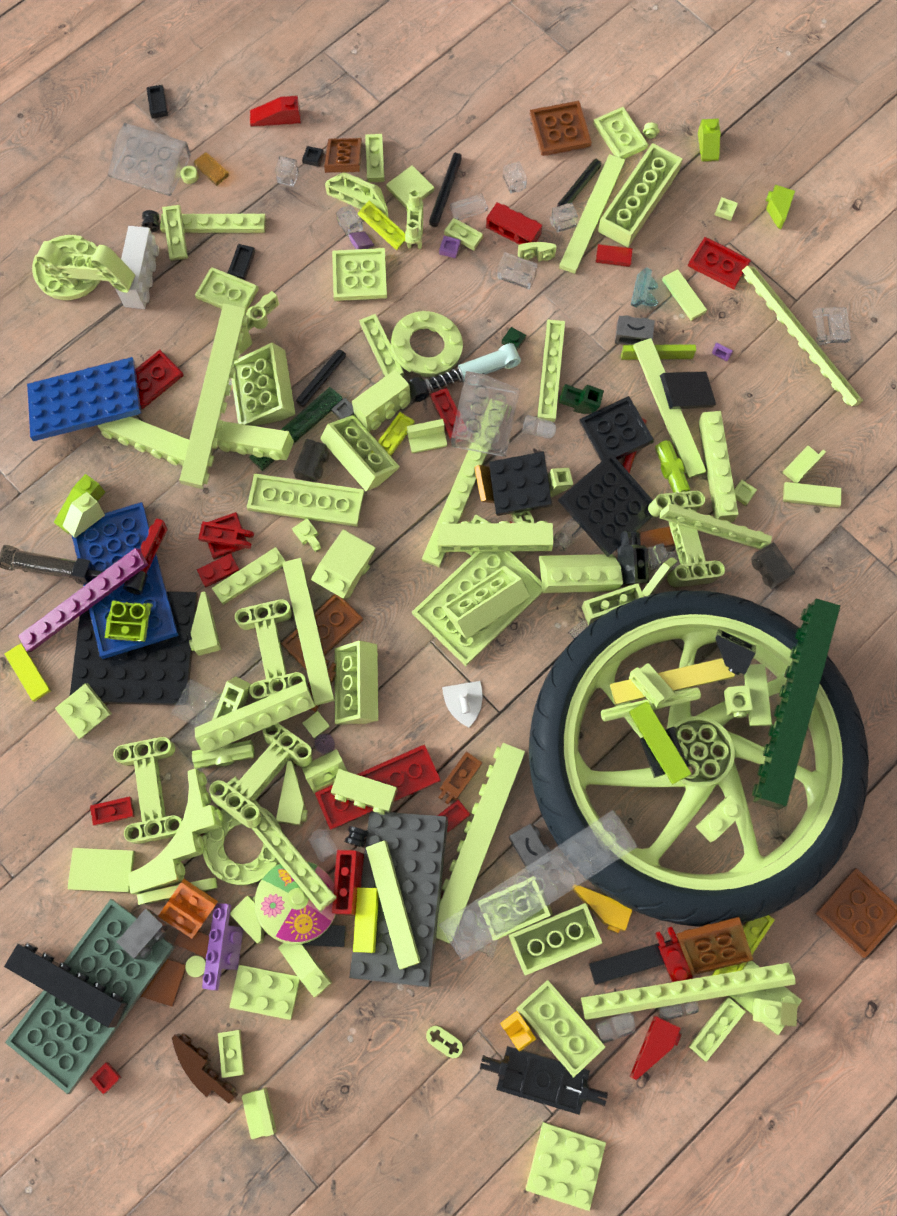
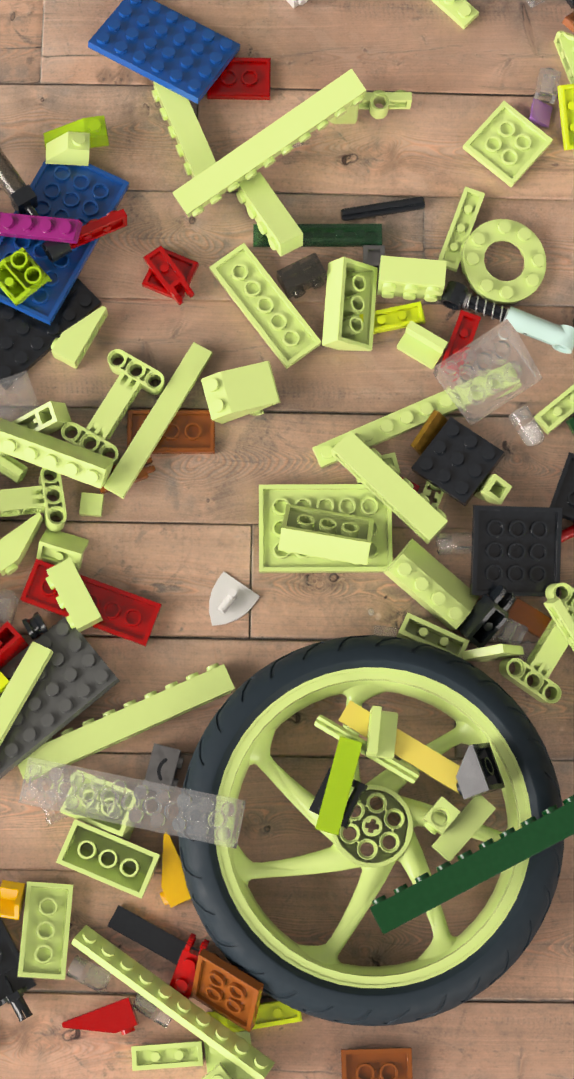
camera: 40 degrees right, 5 degrees up
(218, 570) = (136, 299): red plate -> none
(225, 288) = (377, 56): yellowish green tile -> none
(241, 261) = (416, 39): black tile -> none
(249, 576) = (157, 327): yellowish green plate -> none
(263, 387) = (324, 171): yellowish green slope -> none
(306, 533) = (238, 335): yellowish green plate -> none
(327, 747) = (86, 530): tile -> none
(356, 683) = (155, 501): yellowish green slope -> none
(456, 814) = (130, 684): red tile -> none
(460, 777) = (163, 658): dark orange hinge -> none
(720, 818) = (326, 893): yellowish green brick -> none

